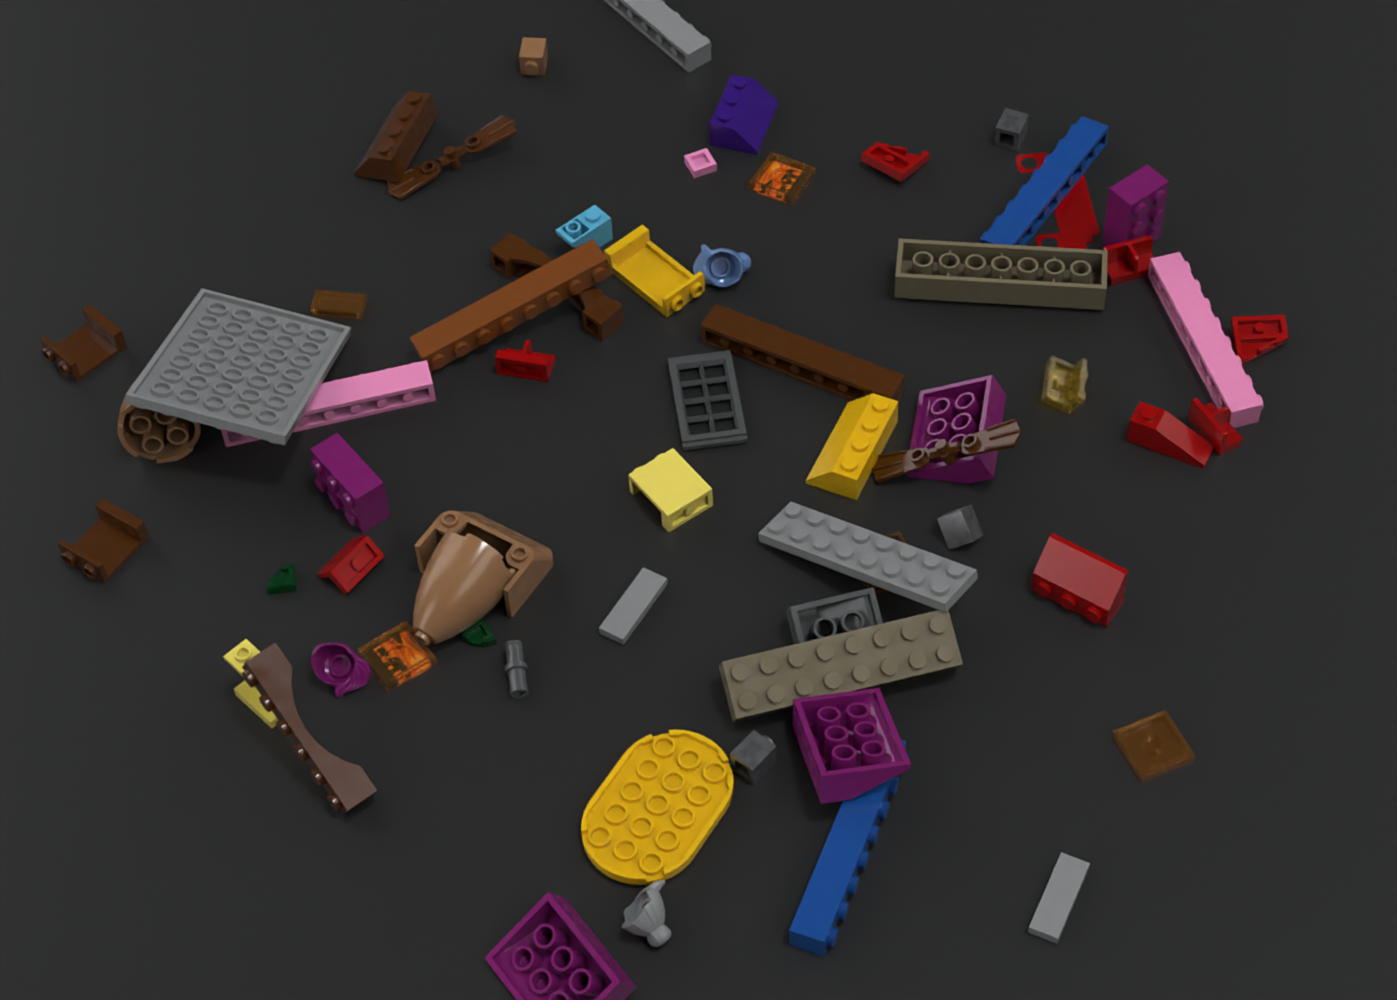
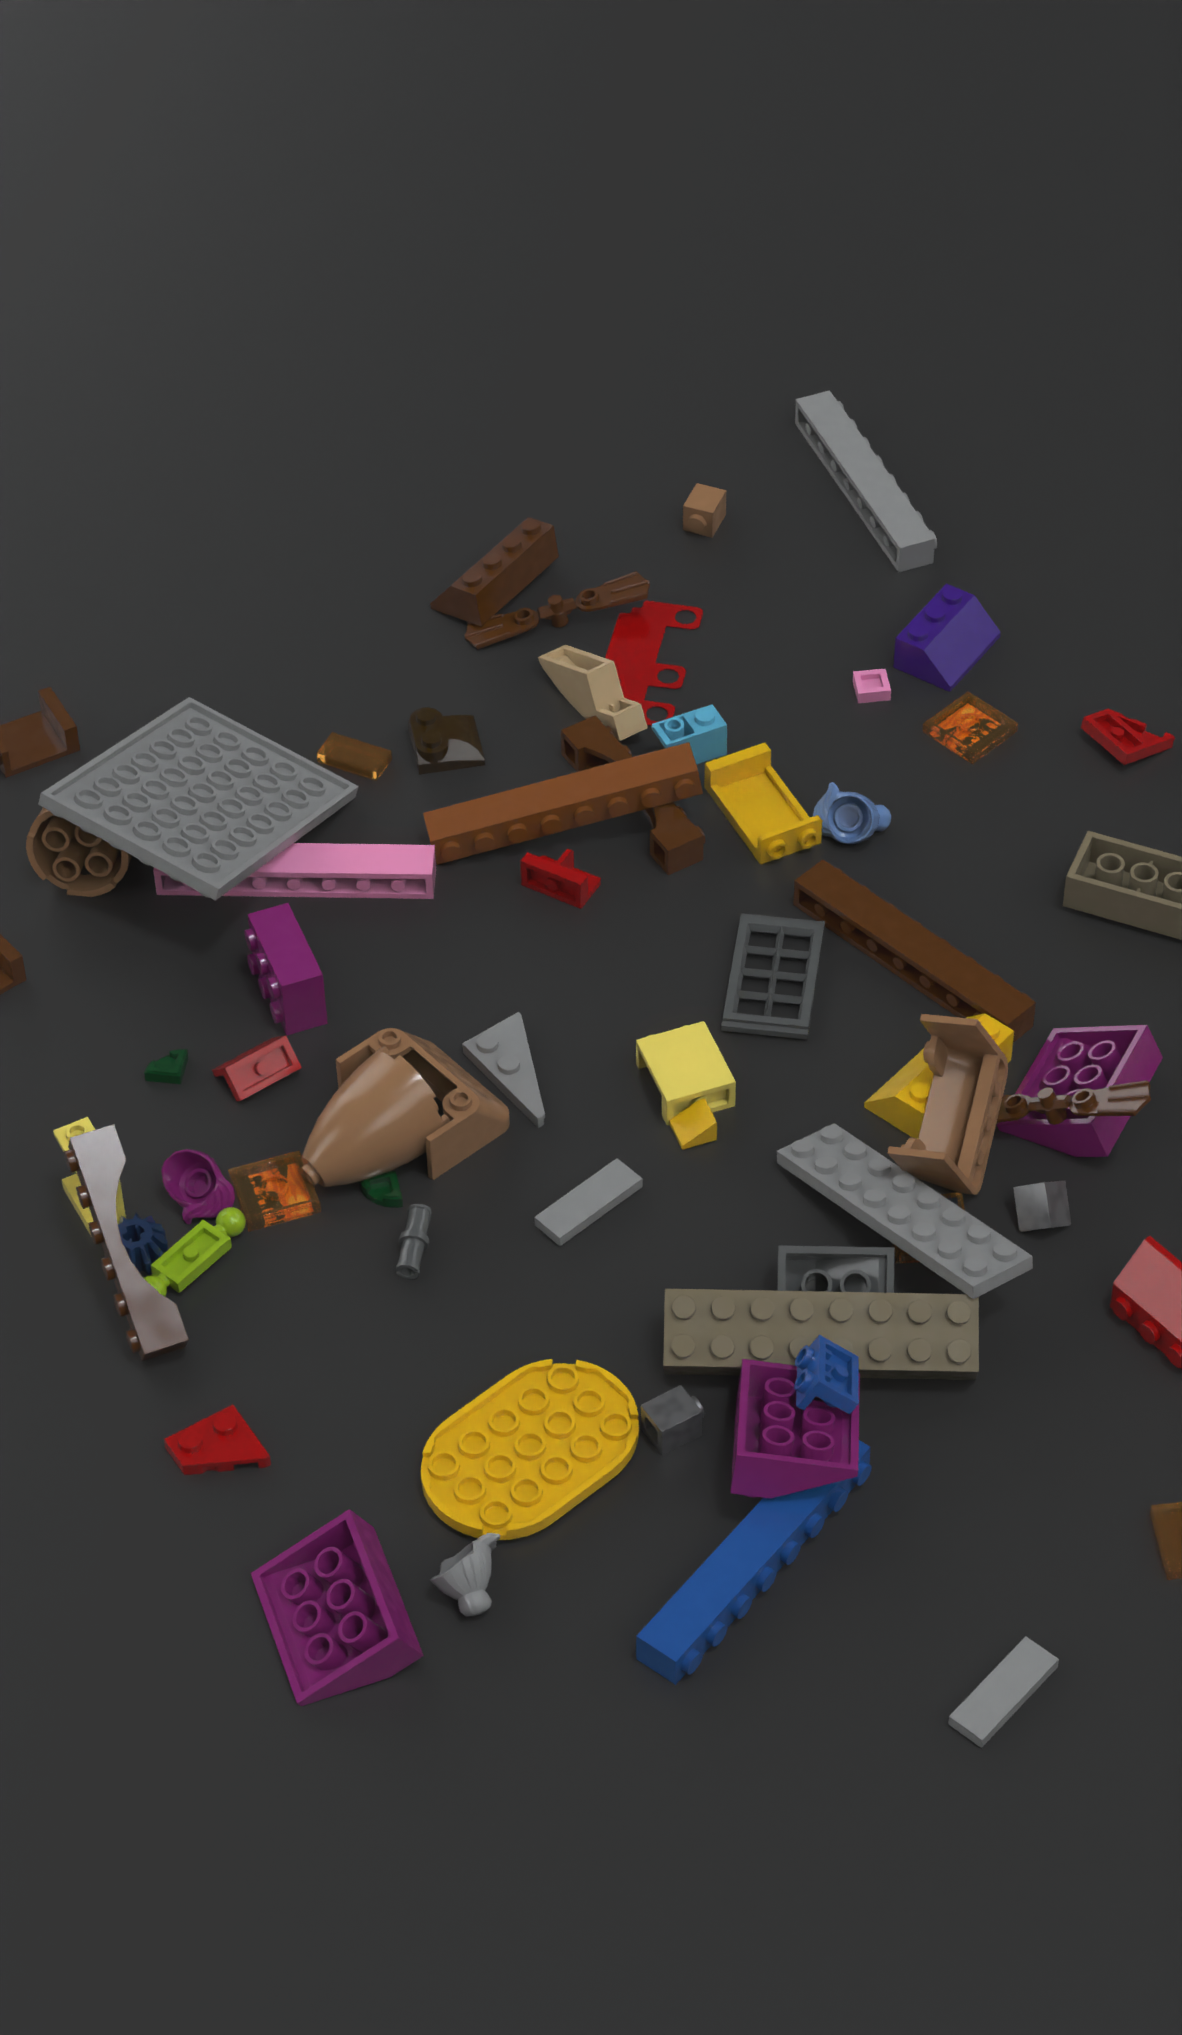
camera: 15 degrees right, 5 degrees down
(316, 721) = (143, 1241): none -> dark blue gear
(356, 719) = (196, 1251): none -> lime plate
(402, 277) = (444, 741): none -> dark brown slope
(423, 865) = (216, 1444): none -> red wing
(500, 212) = (593, 689): none -> tan slope
(518, 182) = (636, 648): none -> red piece
(535, 512) = (506, 1061): none -> light grey wing
(690, 527) = (694, 1125): none -> yellow slope
(859, 696) = (827, 1373): none -> blue bracket
(880, 468) = (960, 1105): none -> medium nougat windscreen

